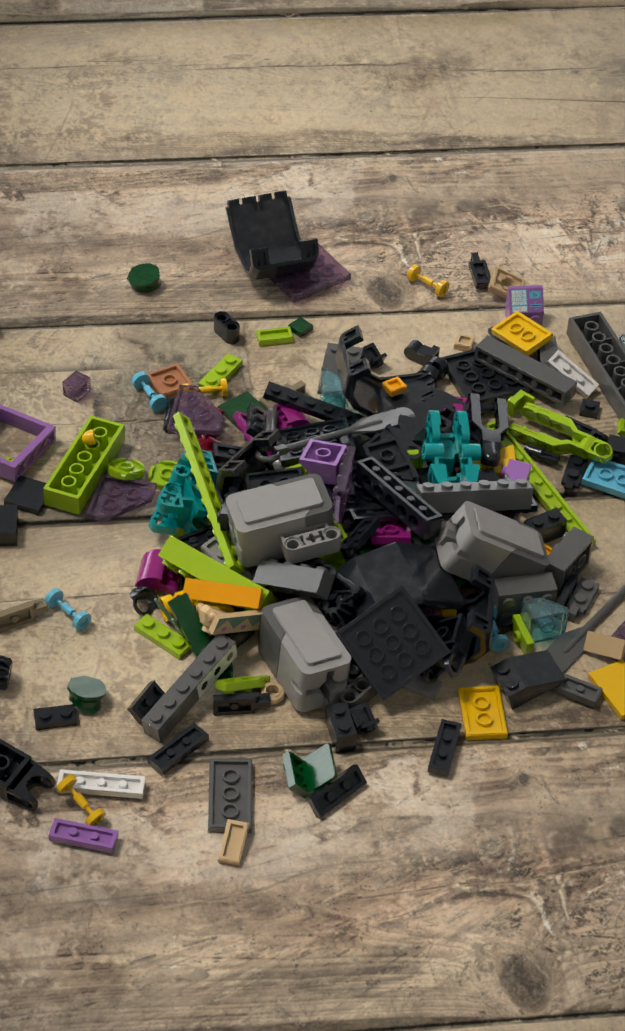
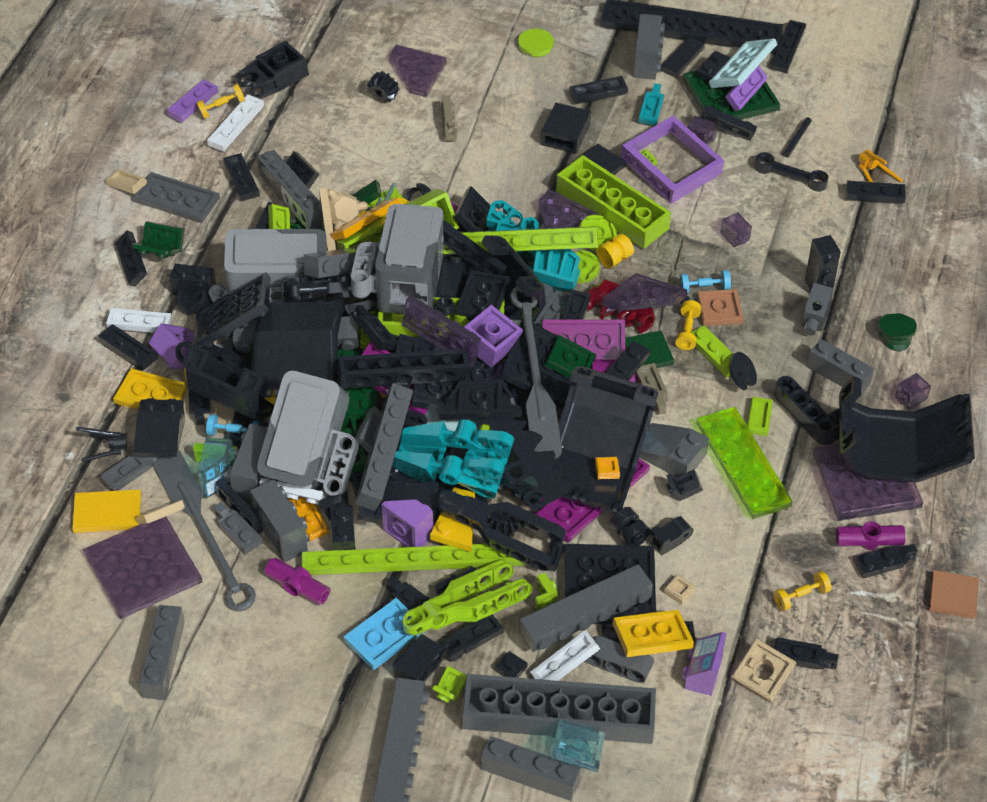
camera: 115 degrees right, 5 degrees up
(55, 717) = (324, 117): black plate -> none
(81, 619) = (454, 144): medium azure wheel -> none
(86, 693) = (333, 134): hat -> none
(89, 437) = (634, 199): yellow hinge -> none
(111, 314) = (822, 262): none -> black brick
(144, 450) = (615, 251): none -> yellow wheel
(152, 318) = (816, 314): none -> dark grey torso
(154, 542) = (473, 211): none -> black tile
(204, 298) = (838, 365): none -> dark grey brick
(206, 260) = (912, 391): none -> clear purple brick
(226, 327) = (788, 367): black beam -> none
(239, 350) = (742, 369): none -> black piece
(255, 420) = (603, 333): black plate -> none
(265, 301) = (802, 407): none -> black beam
(271, 421) = (594, 346): dark grey axle -> none
(298, 430) = (567, 355): none -> dark green tile
(300, 327) = (768, 443): dark green tile -> none
(313, 340) = (744, 463): none -> clear neon green plate
(357, 258) = (870, 535): none -> magenta piece
(371, 251) = (884, 560): none -> black hinge
(379, 217) = (954, 594): none -> nougat tile
(409, 752) = (137, 320): none -> white plate
(423, 706) = (166, 340): none -> medium lavender slope
(470, 675) = (199, 405): none -> black hinge
(552, 710) = (117, 441): none -> black plant
(605, 541) = (297, 581): none -> magenta piece

